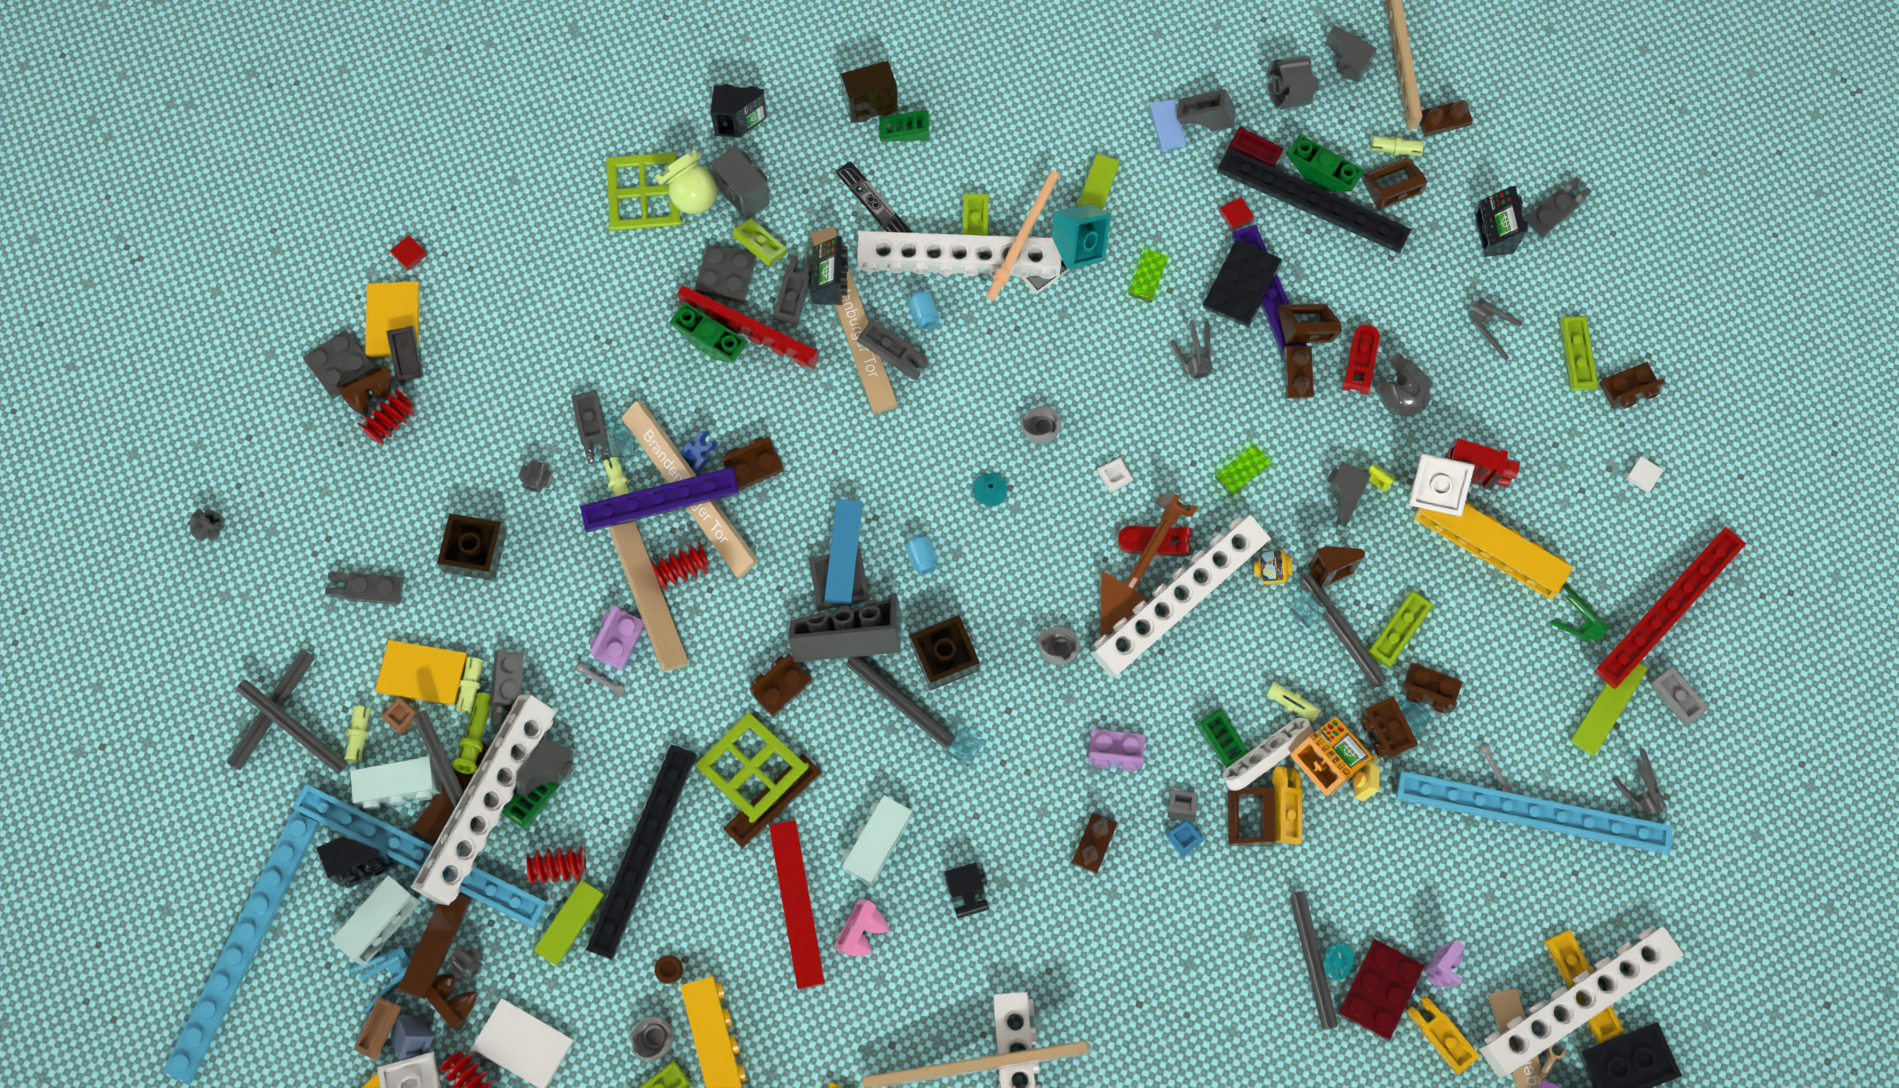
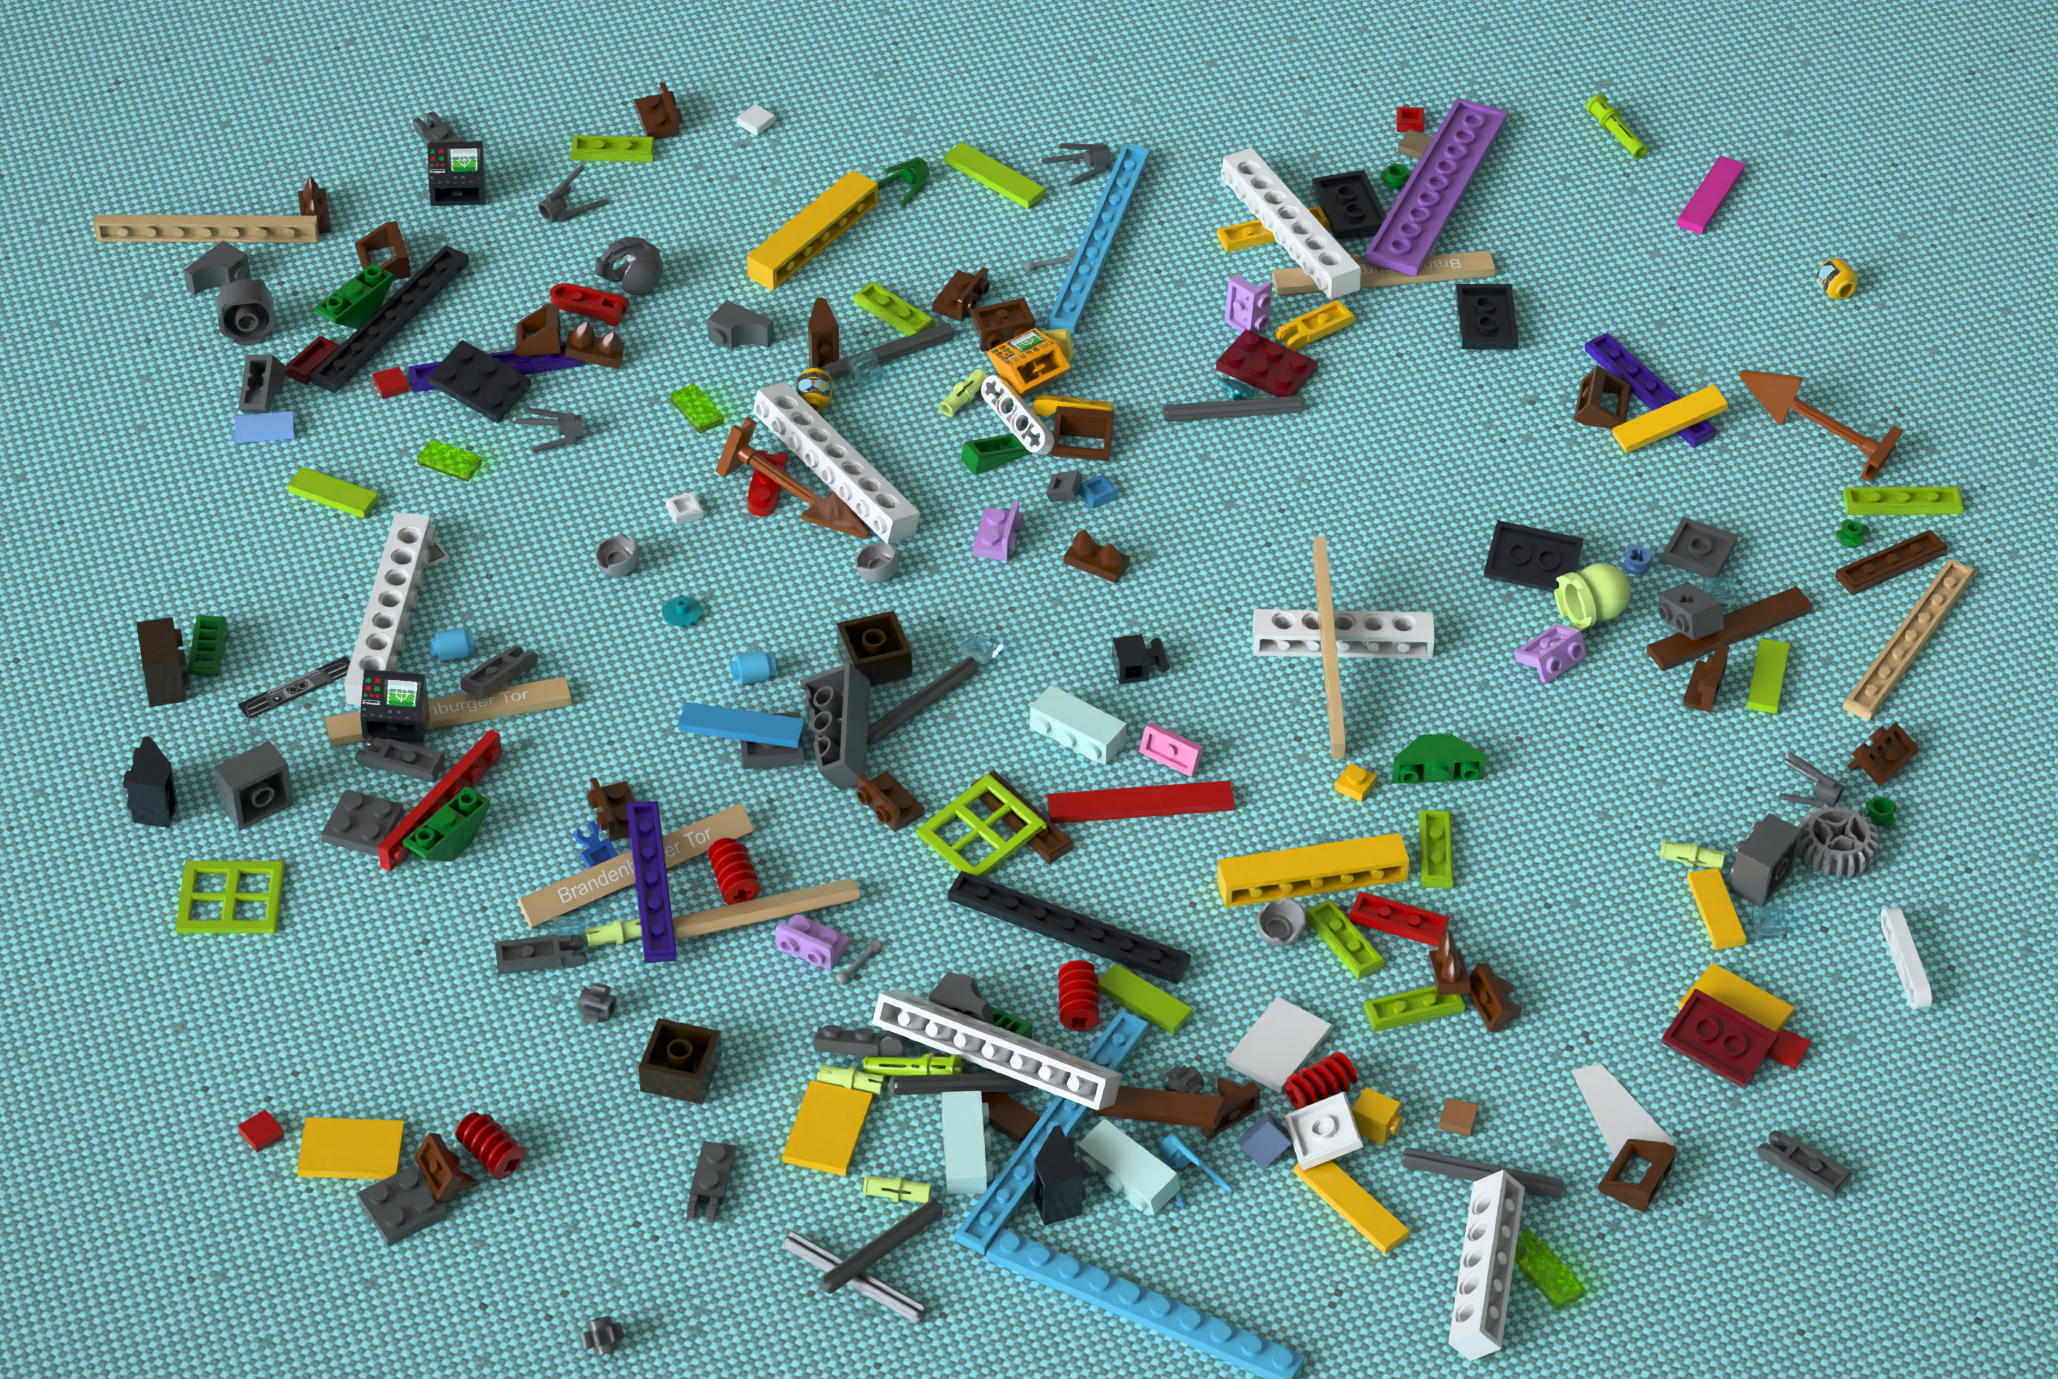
camera: 85 degrees left, 25 degrees down
(377, 1028) = (1253, 1170): medium nougat tile -> none
(399, 715) = (878, 1150): medium nougat tile -> none
(405, 353) = (403, 1126): black tile -> none
(668, 969) = (1204, 915): reddish brown tile -> none
(690, 185) = (241, 831): yellowish green tile -> none
(759, 242) = (331, 783): lime plate -> none
(975, 214) = (342, 593): lime plate -> none
(1002, 274) = (430, 559): light nougat bar -> none
(1081, 235) = (391, 492): teal slope -> none
(1380, 477) = (731, 295): neon yellow slope -> none
(1396, 146) = (339, 249): yellowish green pin -> none
(1441, 484) = (752, 240): white tile -> none
(1490, 465) = (728, 224): red hips -> none
(1669, 608) = (903, 115): red plate -> none
(1679, 696) = (993, 125): light grey plate -> none

